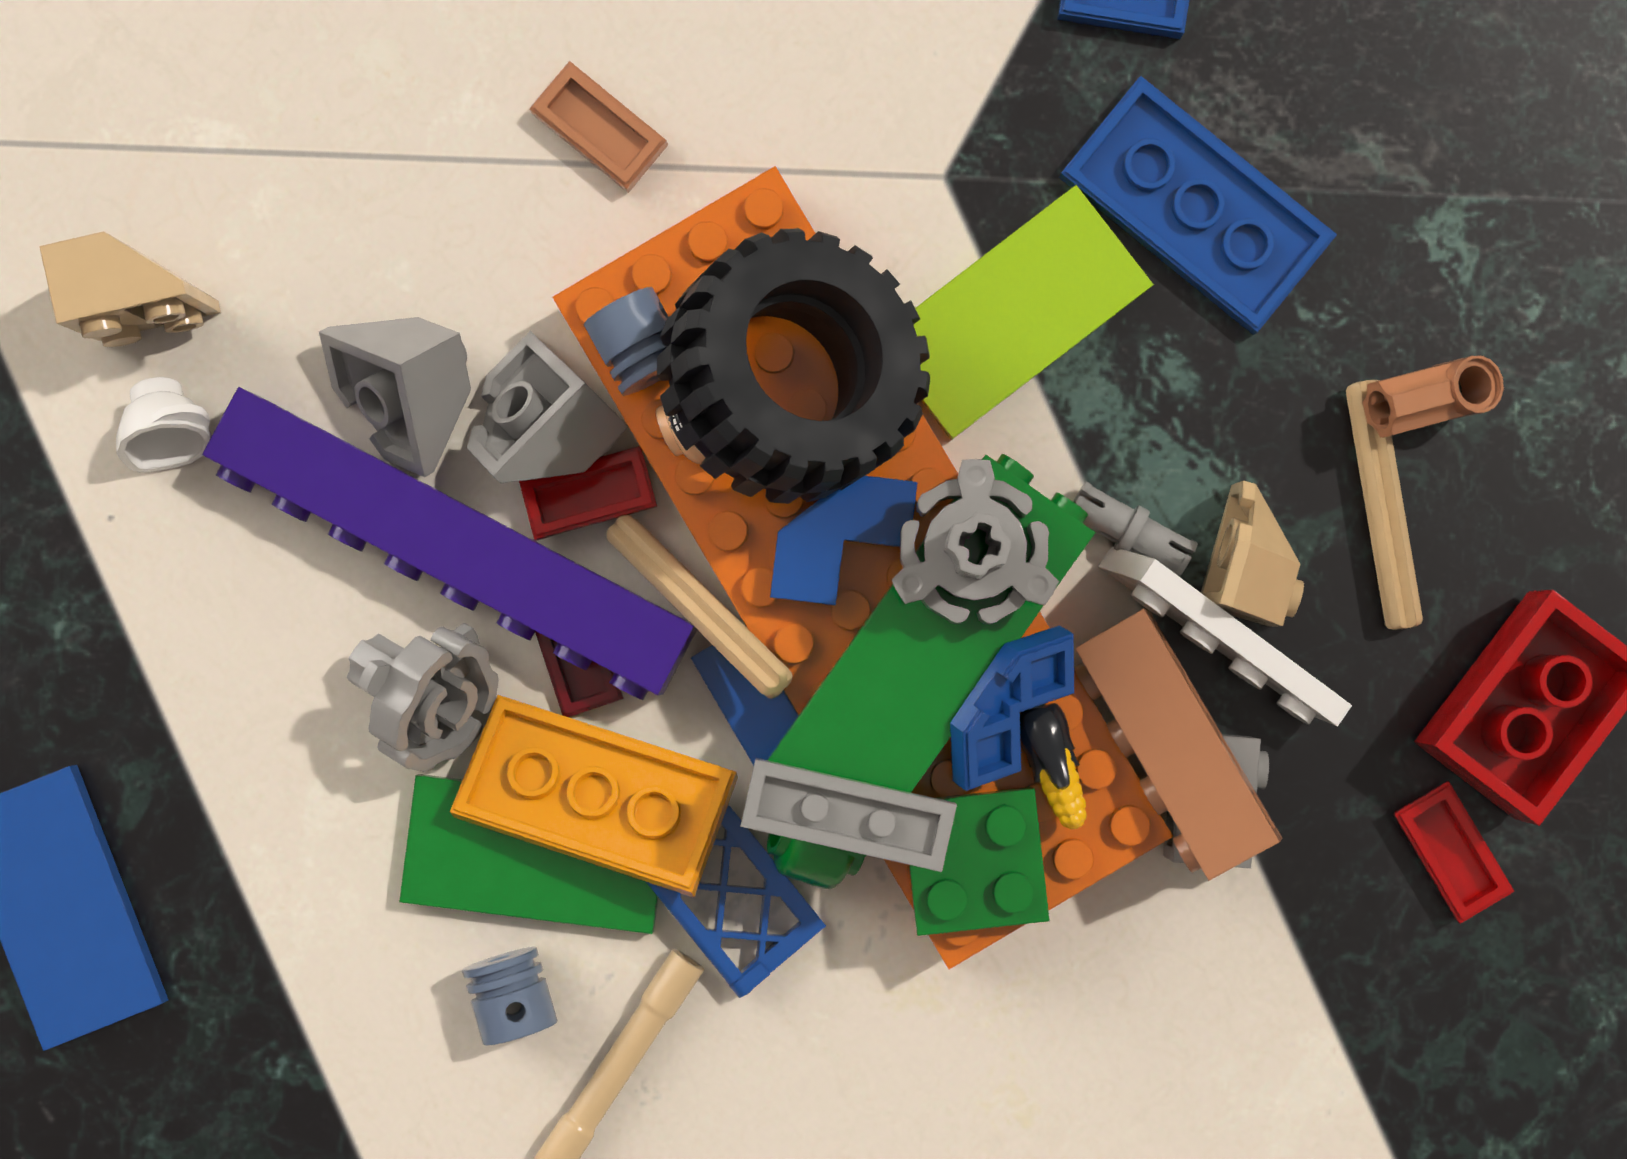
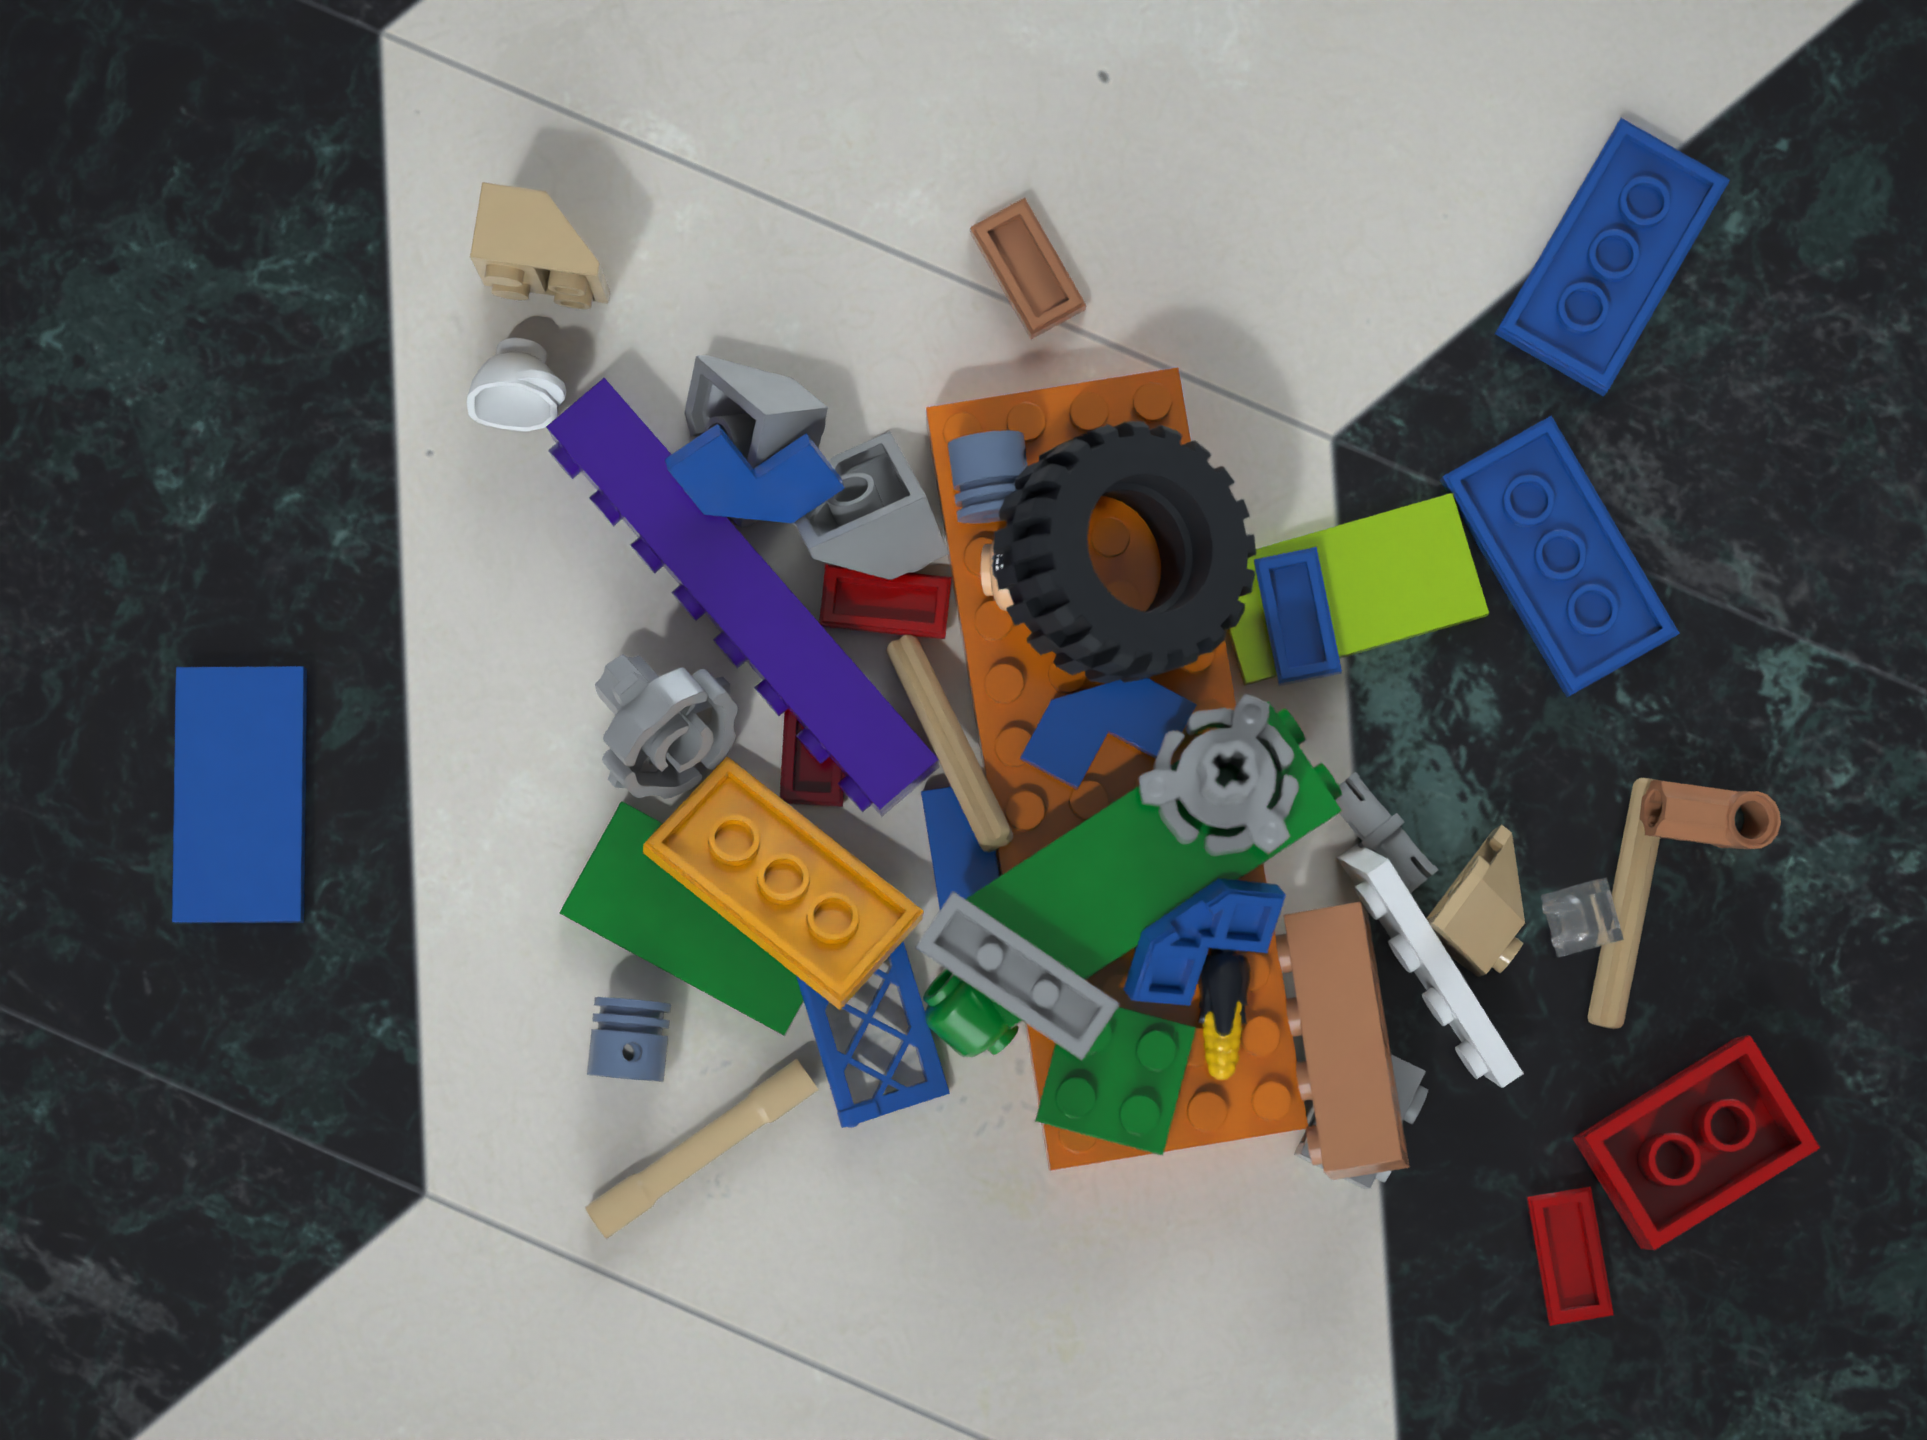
camera: 15 degrees right, 5 degrees down
(440, 432) = (774, 491): none -> blue tile
(977, 357) = (1297, 616): none -> blue tile
(1348, 536) = (1582, 917): none -> clear tile

